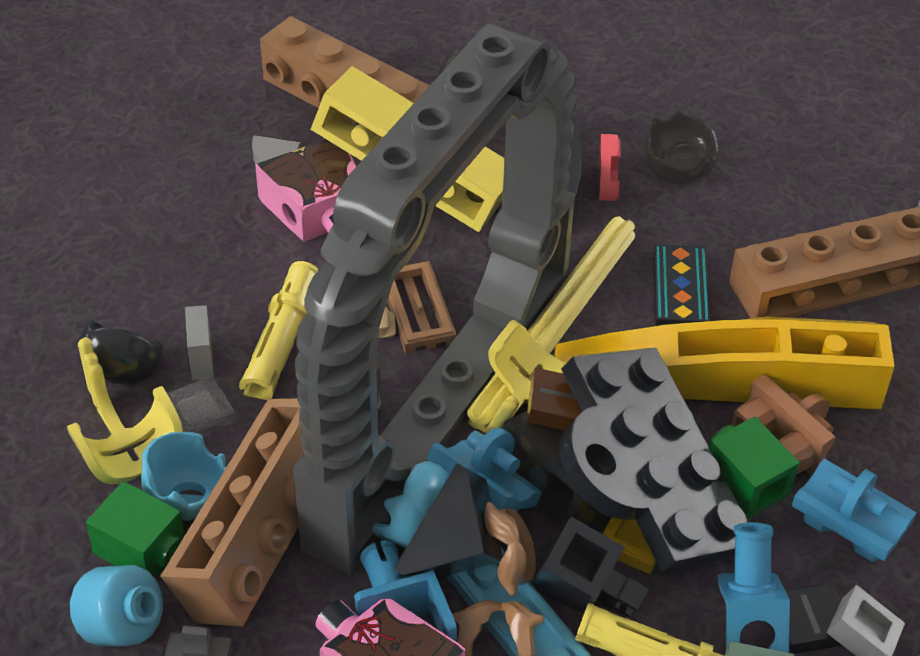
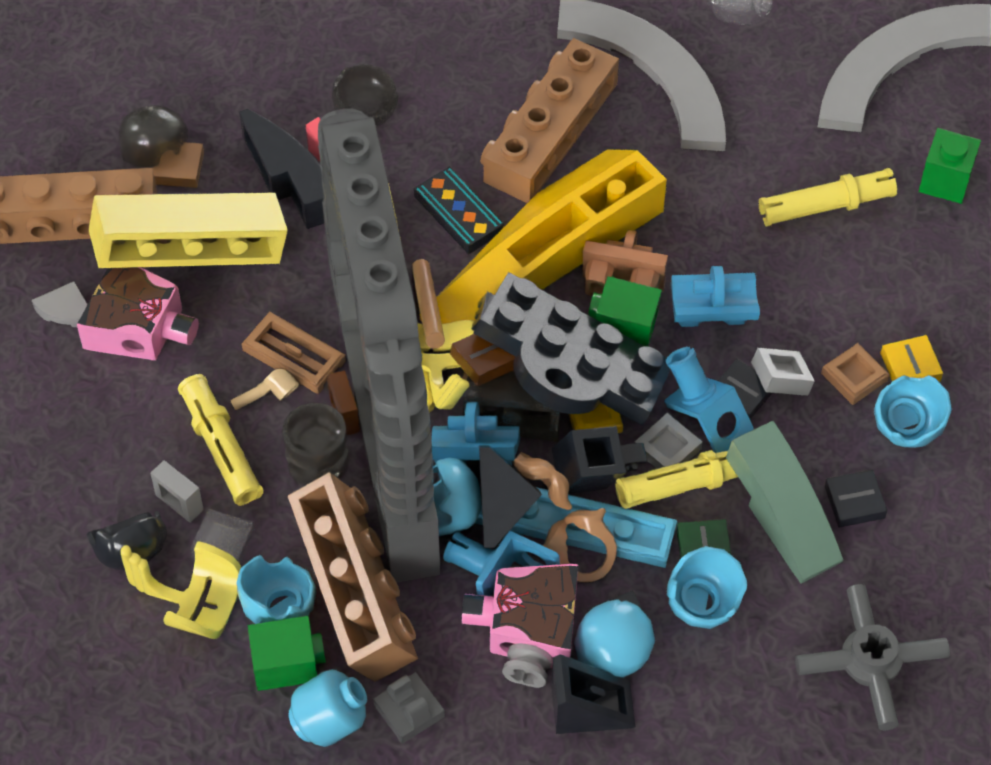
camera: 40 degrees left, 10 degrees up
(409, 367) = (343, 400): none -> reddish brown tile
(563, 336) = (428, 304): none -> medium nougat bar
(682, 612) = (669, 443): none -> light grey tile

